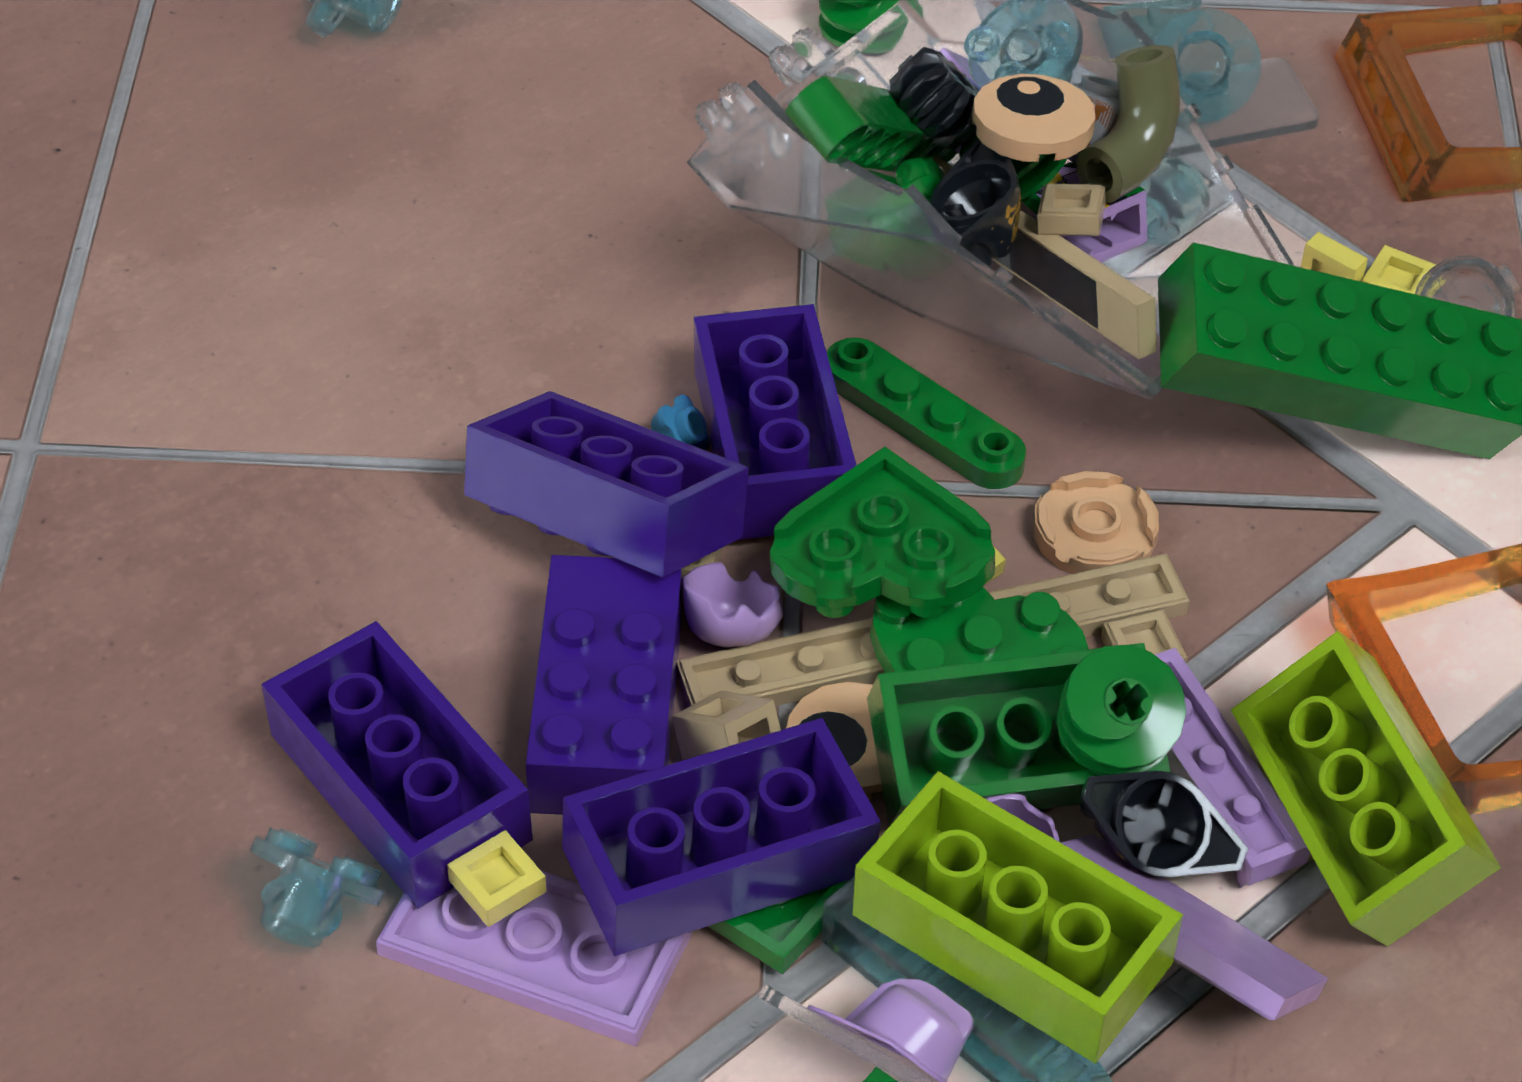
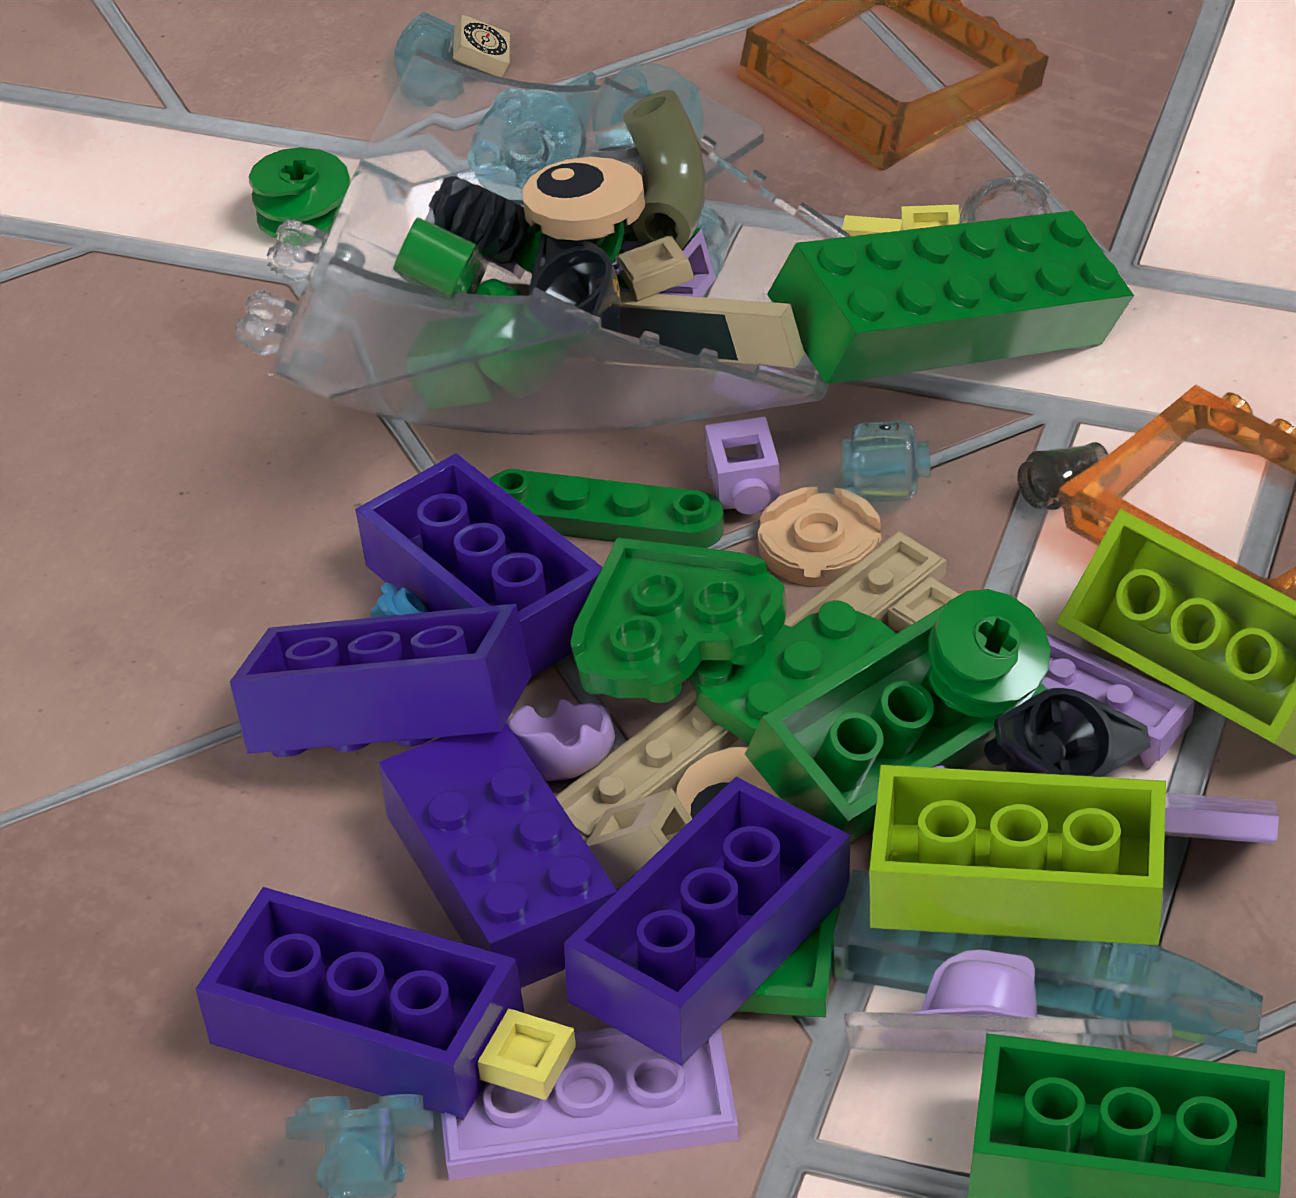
camera: 25 degrees left, 5 degrees down
(1062, 441) = (744, 480): none -> lavender brick
(1194, 481) = (884, 460): none -> clear light blue head
(1345, 559) = (1050, 469): none -> clear smoke cone

